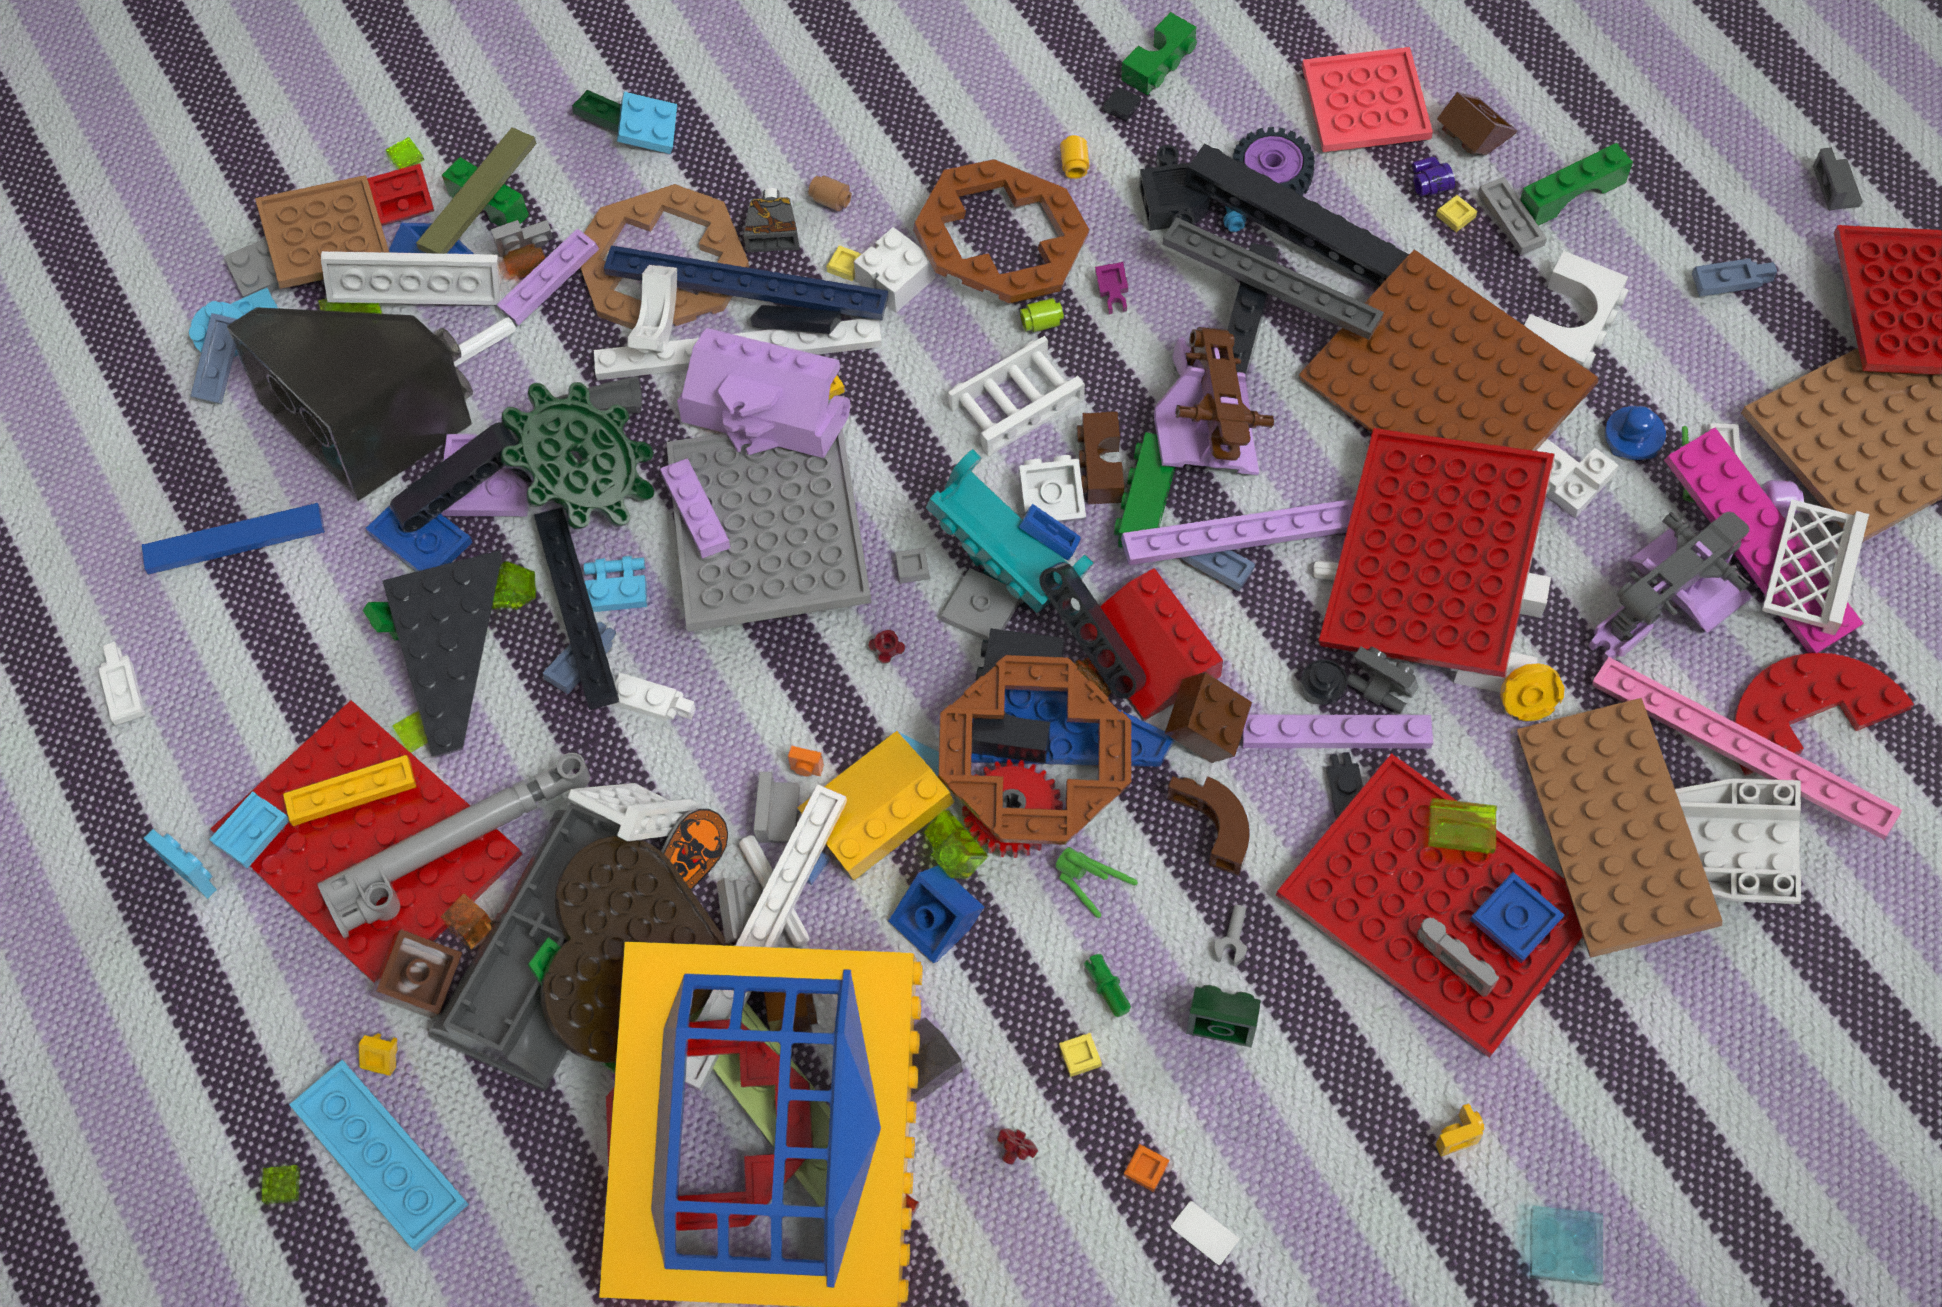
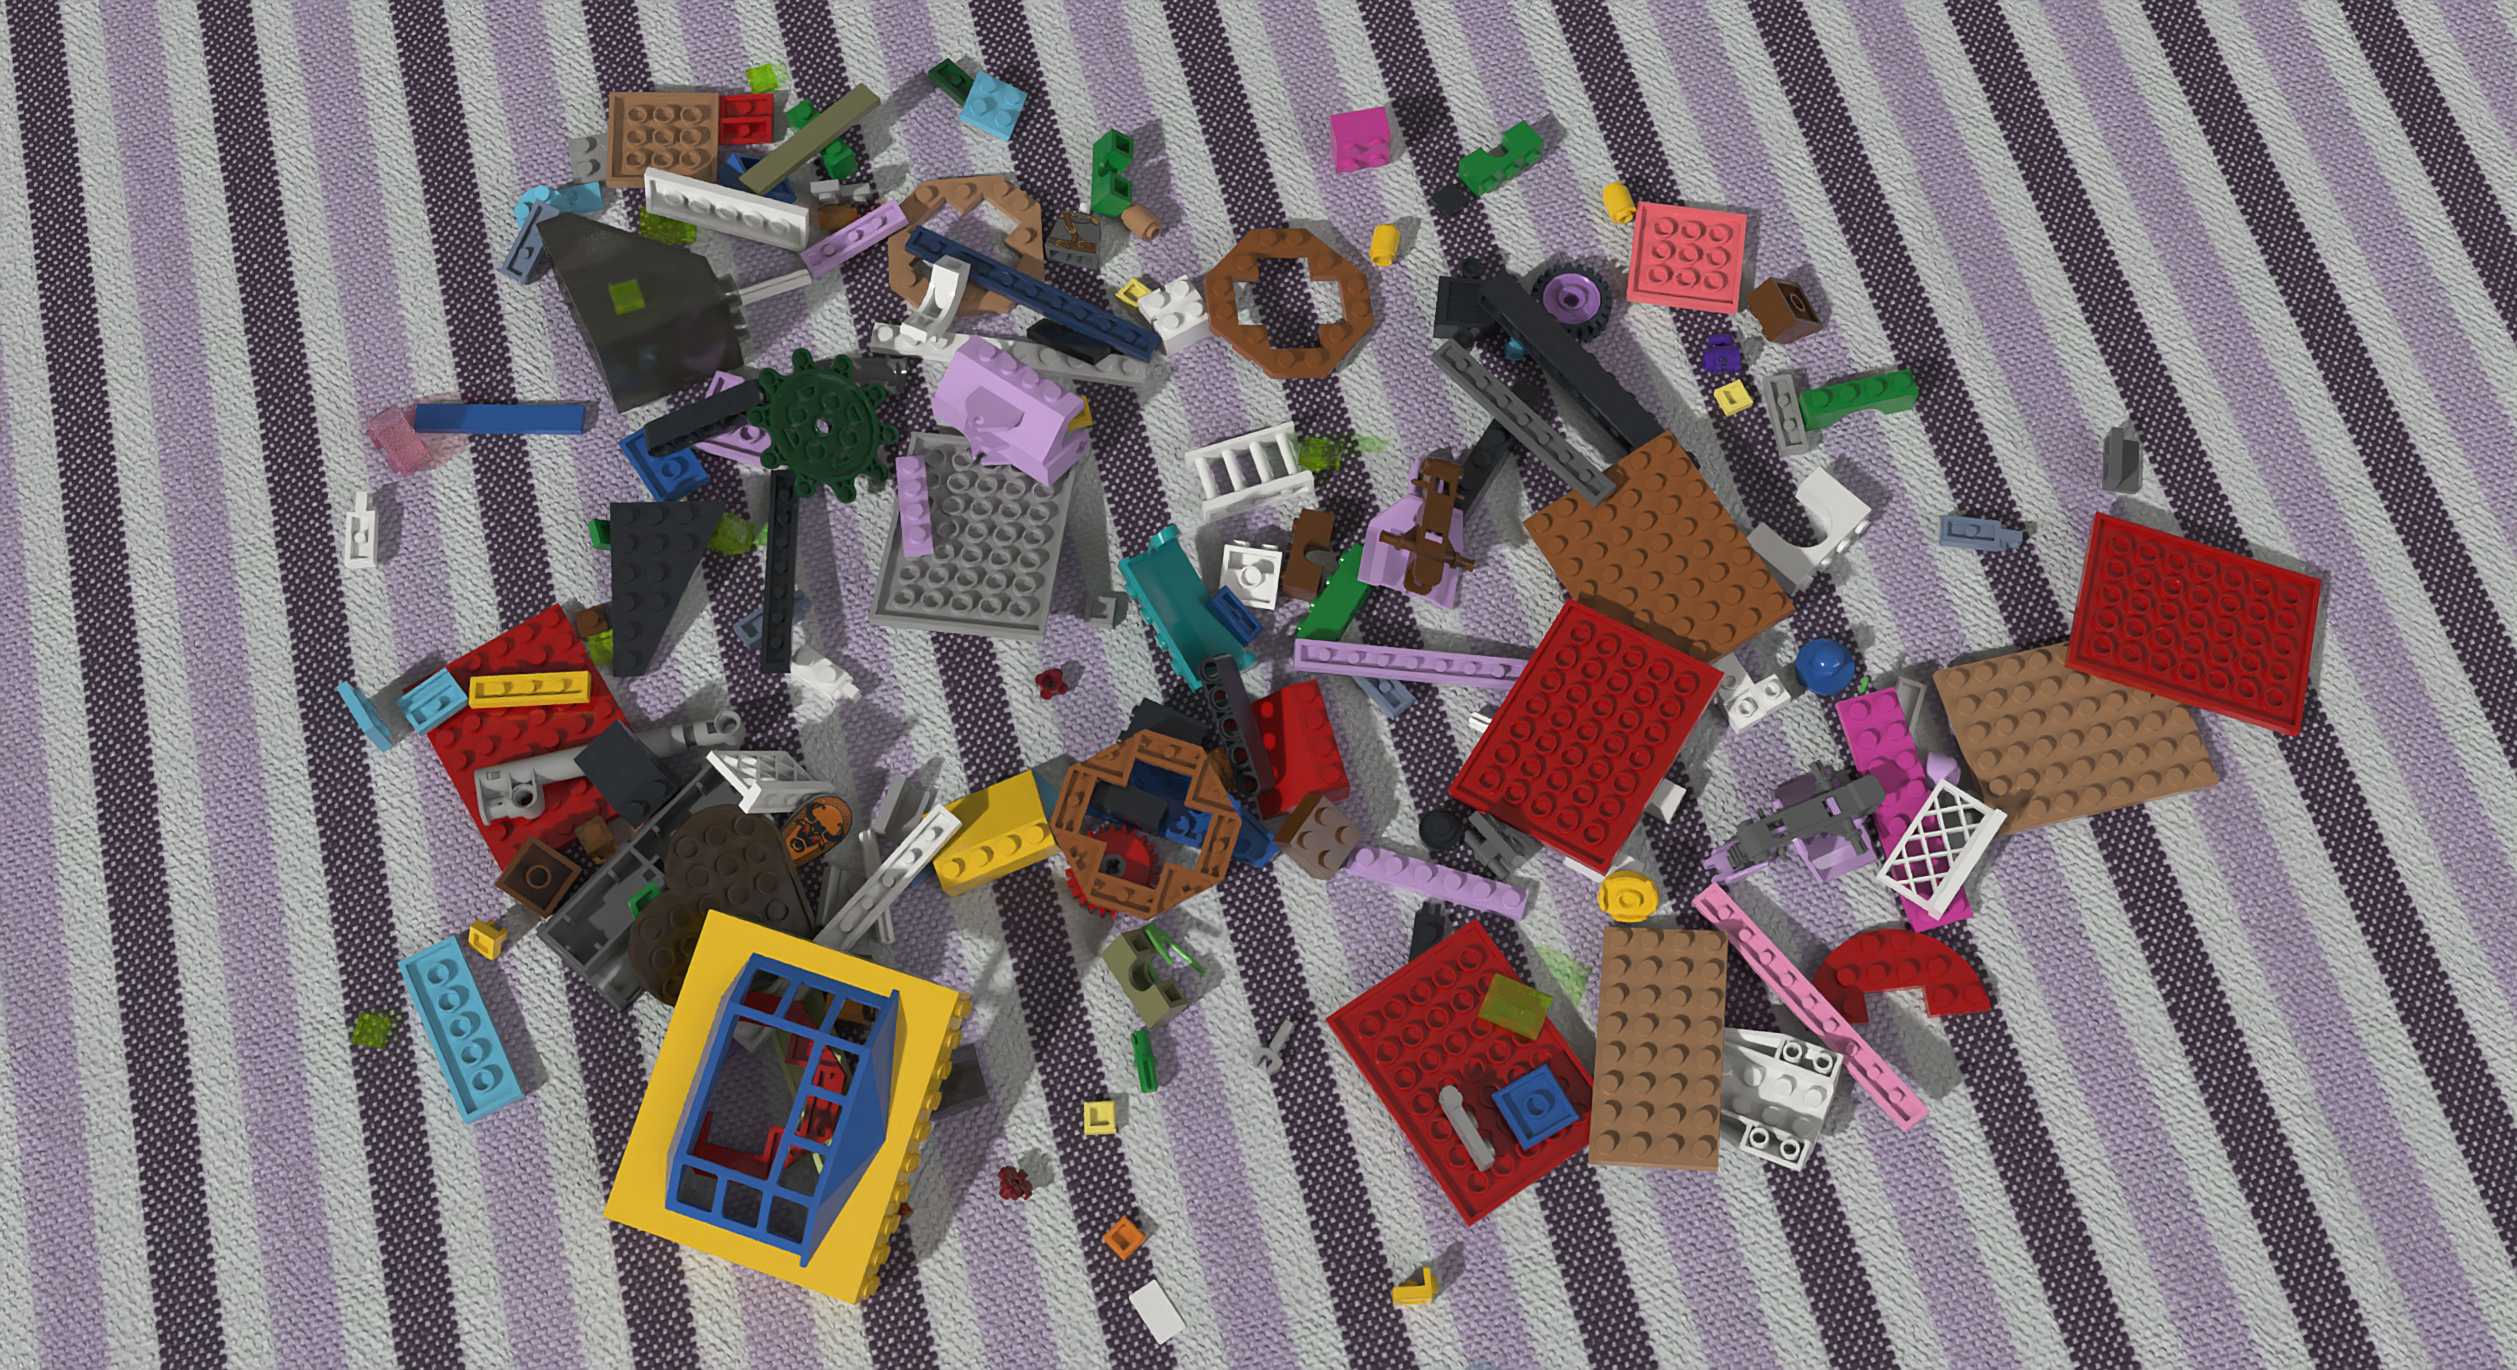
camera: 15 degrees right, 5 degrees up
(134, 580) = (394, 434): none -> clear pink brick
(345, 370) = (626, 296): none -> clear neon green tile
(391, 710) = (591, 622): none -> reddish brown plate
(481, 843) = (627, 773): none -> black slope
(619, 592) = (826, 565): medium azure plate -> none
(790, 169) = (1109, 190): none -> green arch
(805, 761) = (941, 775): orange plate -> none
(935, 913) = (1012, 949): blue slope -> none
(954, 846) = (1049, 895): clear neon green arch -> none
(980, 605) = (1147, 670): light grey plate -> none
(1019, 66) = (1360, 139): none -> dark pink brick
(1041, 315) = (1299, 398): lime brick -> none
(1058, 890) = (1128, 961): none -> olive arch
(1081, 360) = (1319, 453): none -> clear neon green plate
(1112, 283) = (1377, 382): magenta plate -> none
(1223, 1015) = (1237, 1119): dark green slope -> none
(1226, 814) = (1304, 955): reddish brown arch -> none
(1285, 66) = (1618, 203): none -> yellow brick

